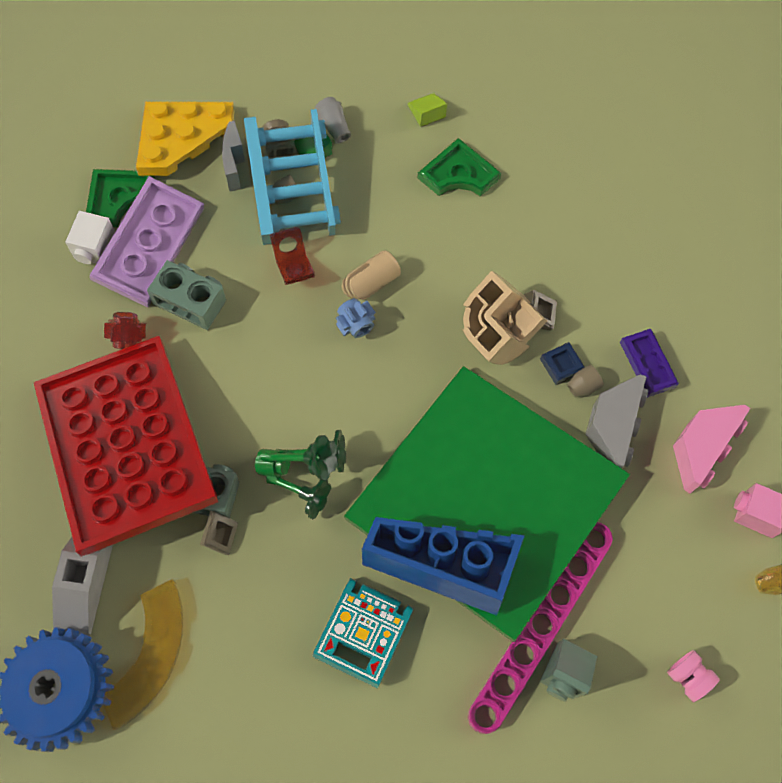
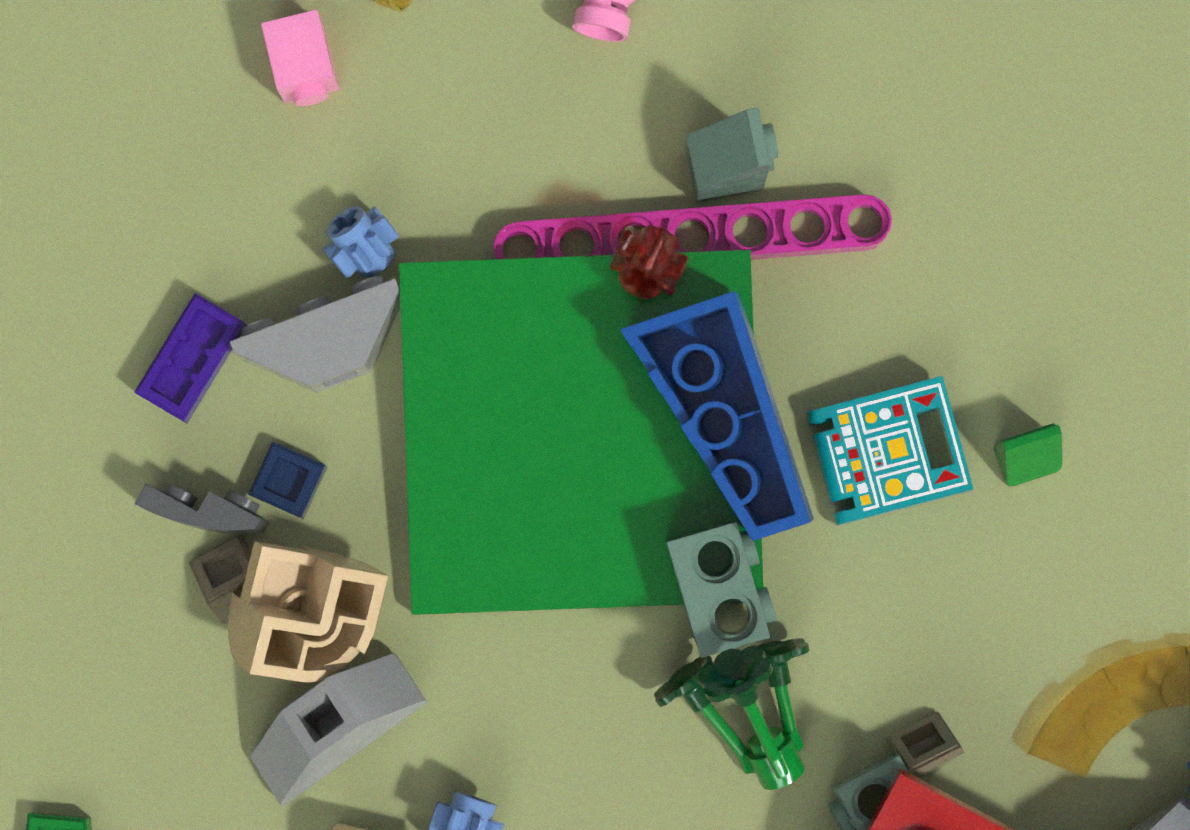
camera: 120 degrees left, 15 degrees up
(305, 700) = (1030, 454): none -> green slope
(371, 487) = (705, 592): none -> sand green brick
(441, 304) = (334, 724): none -> light grey slope
(546, 580) = (649, 262): none -> clear red gear
(570, 322) = (224, 515): none -> dark grey slope
(585, 382) = (295, 426): dark tan hose -> none
(652, 468) = (360, 242): none -> medium blue gear
(705, 442) = (259, 197): bright pink slope -> none

